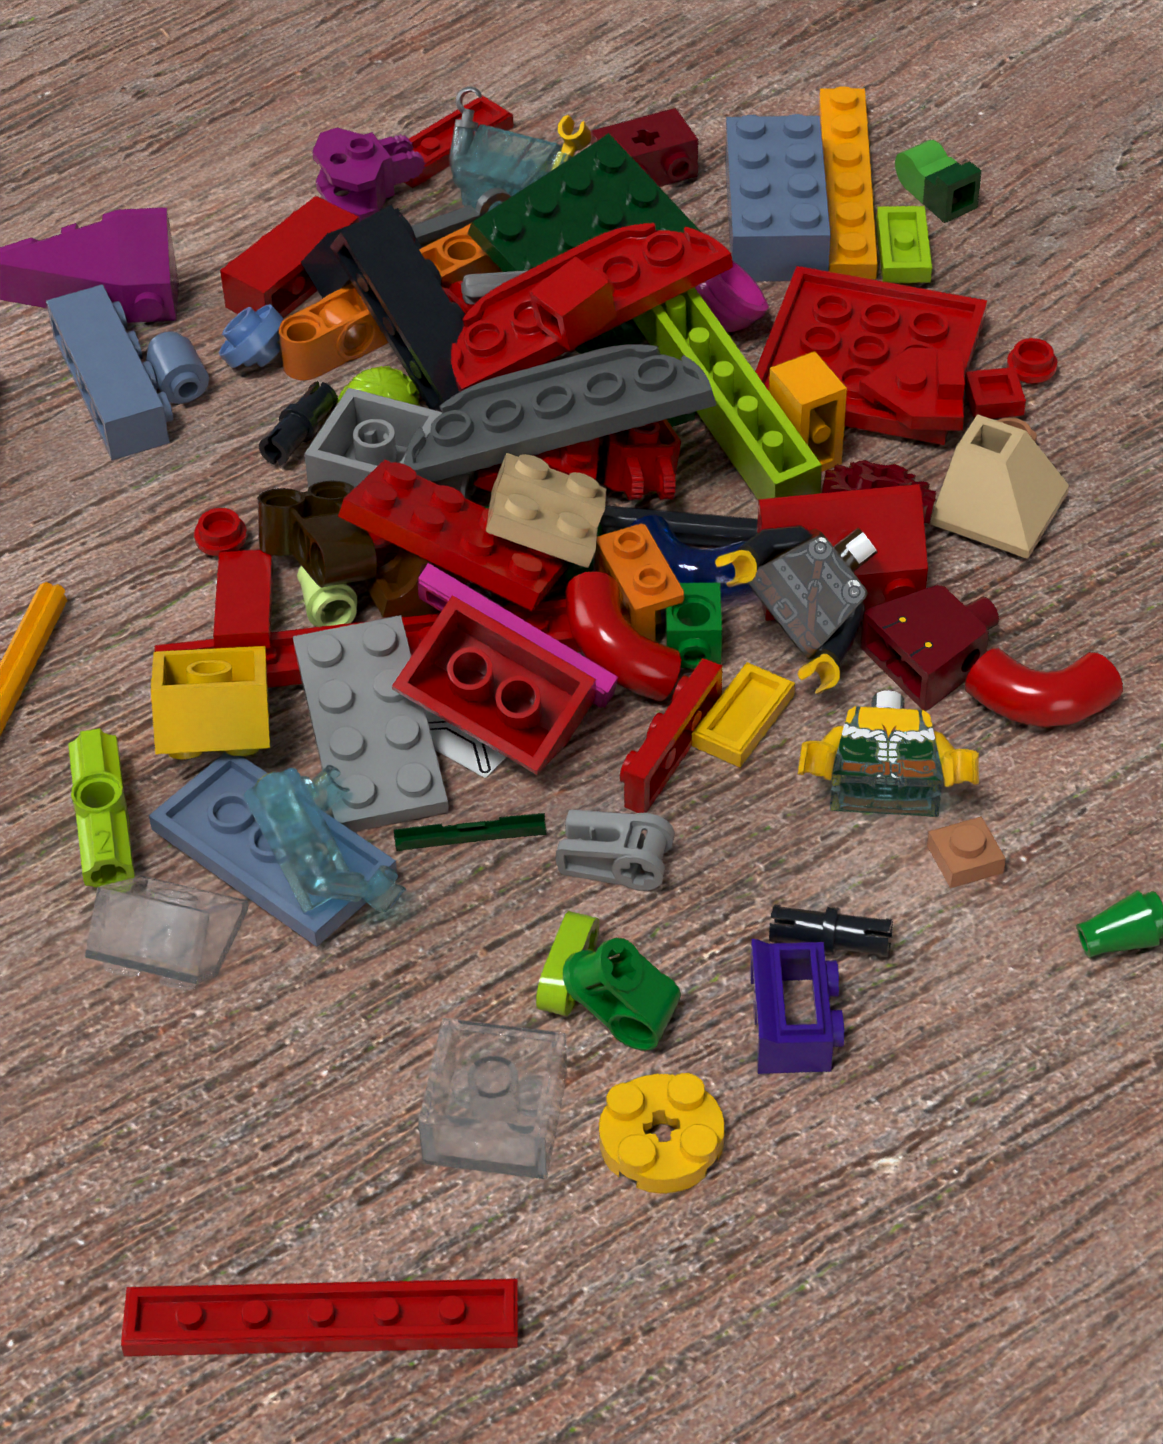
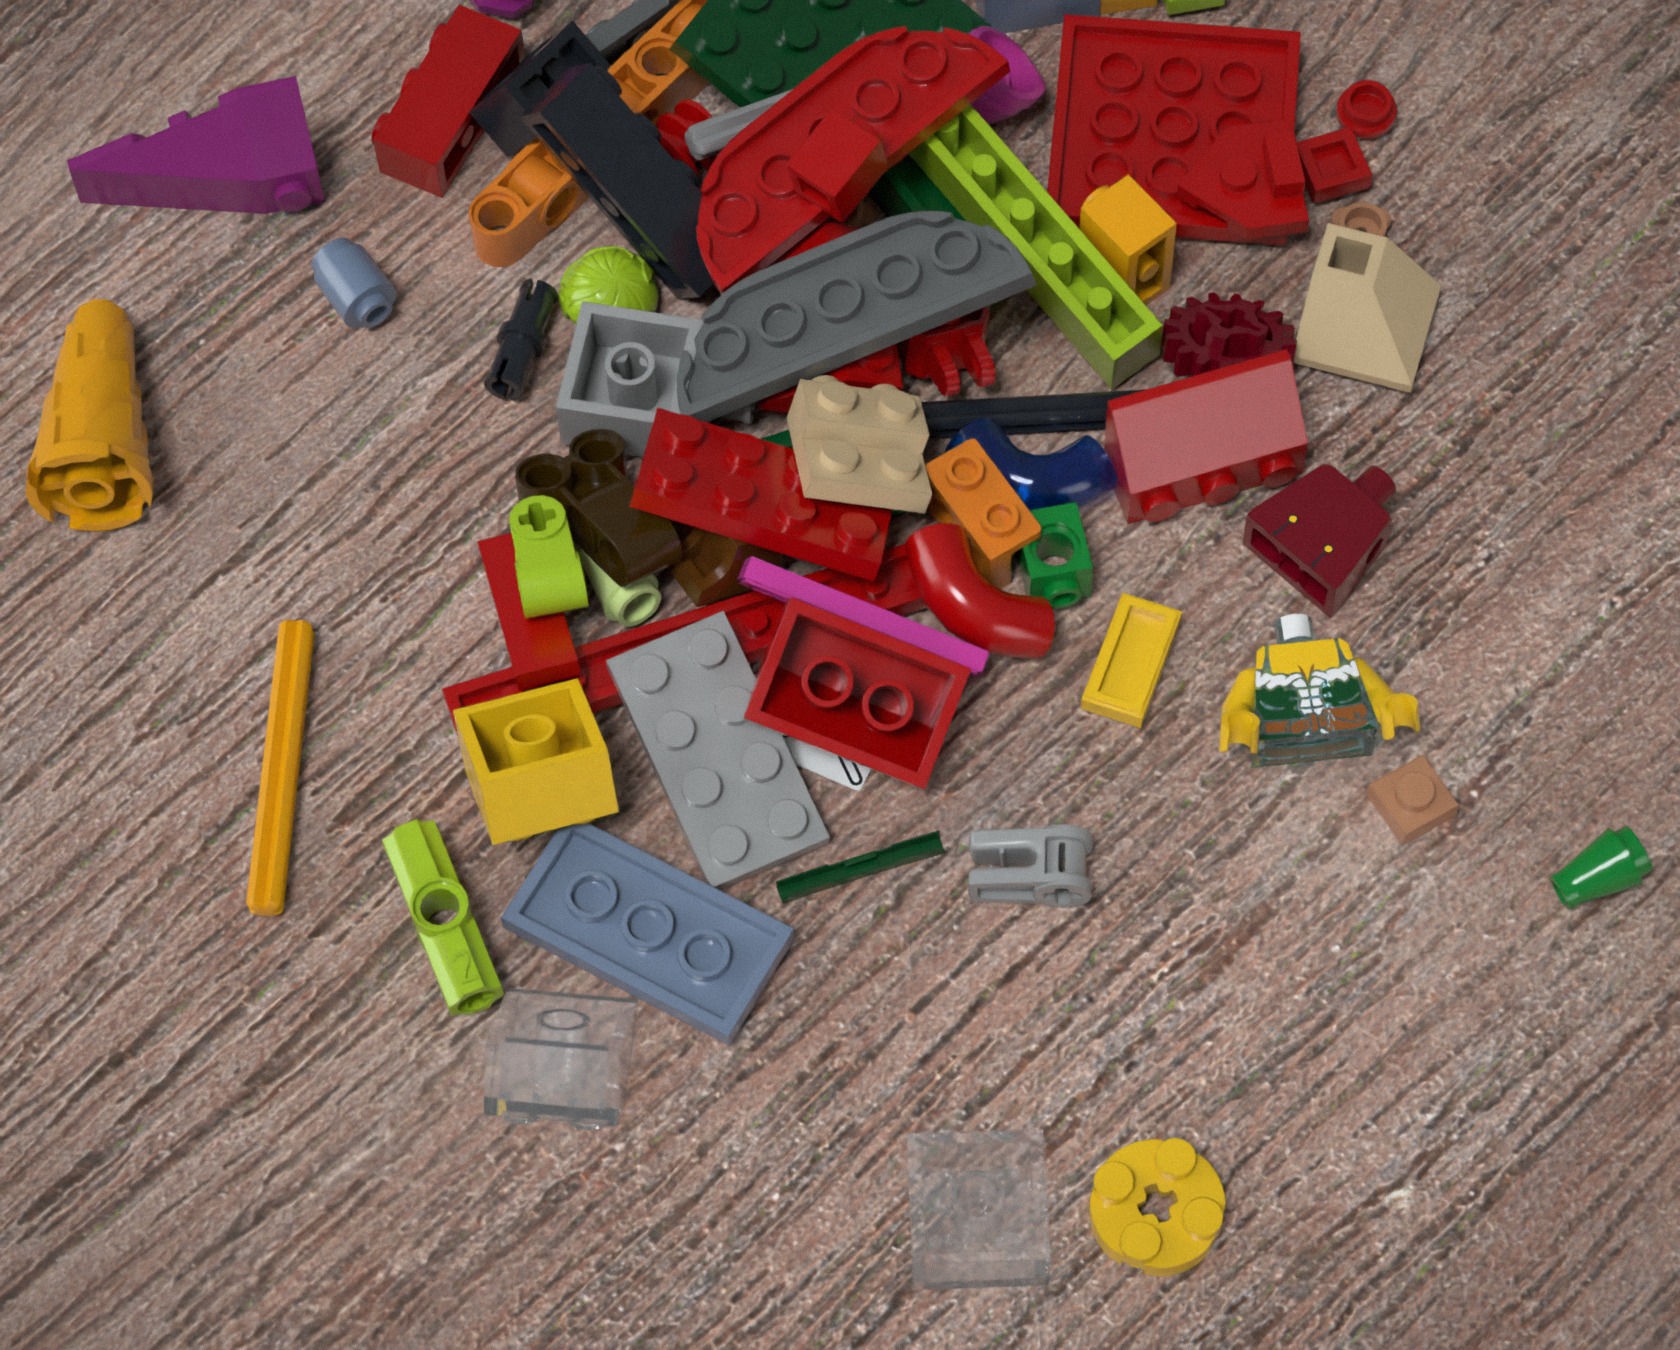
camera: 10 degrees left, 15 degrees up
(110, 371) = (272, 301): sand blue brick -> none
(220, 531) = (470, 512): red plate -> none
(252, 337) = (433, 225): medium blue plate -> none
(262, 560) = (545, 558): none -> lime piece
(303, 846) = (696, 937): clear light blue torso -> none
(575, 934) = (1012, 1023): lime beam -> none
(630, 992) = (1083, 1054): green piece -> none
(669, 737) = (1059, 708): red plate -> none
(802, 1046) = (1242, 1040): dark purple window -> none
(807, 590) = (1182, 506): torso -> none
(832, 928) = (1288, 929): black pin -> none
(1042, 696) = (1465, 587): red cylinder -> none

